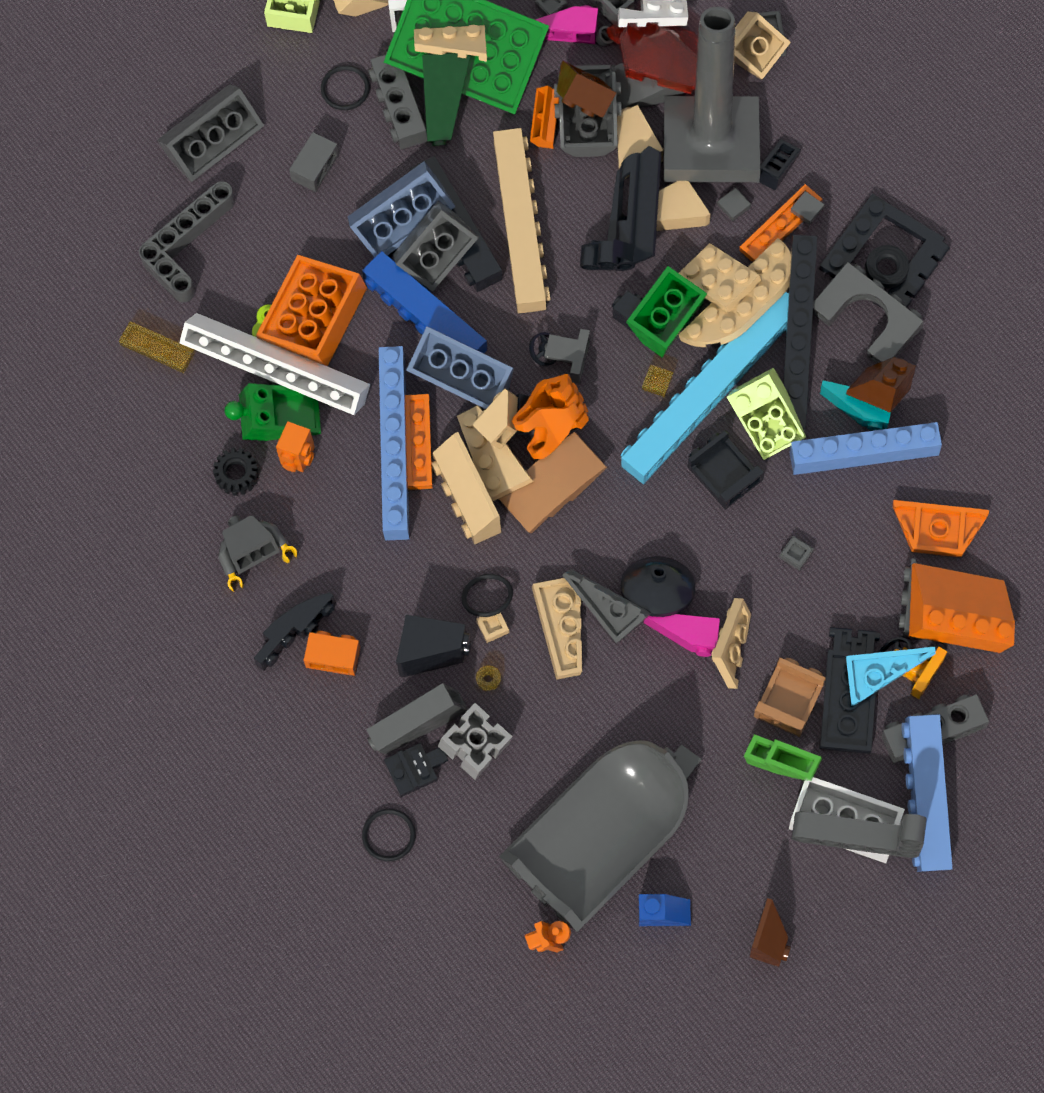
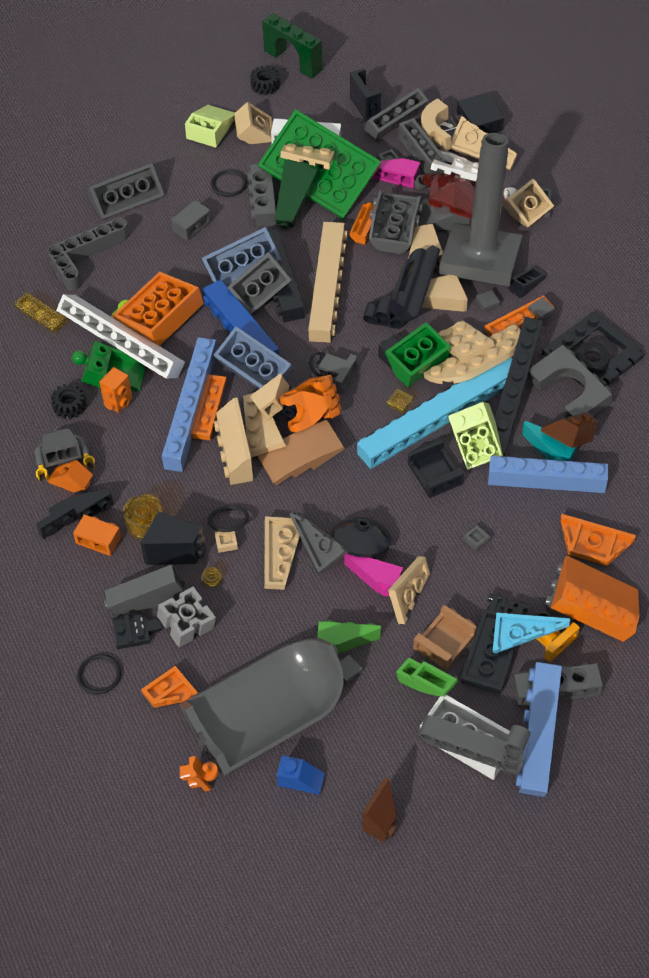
camera: 10 degrees right, 15 degrees down
(273, 580) = (71, 476): none -> orange slope
(376, 607) = (140, 514): none -> clear yellow brick
(480, 837) = (168, 689): none -> orange wing
(584, 90) = (395, 202): reddish brown slope -> none
(667, 724) = (348, 635): none -> bright green slope

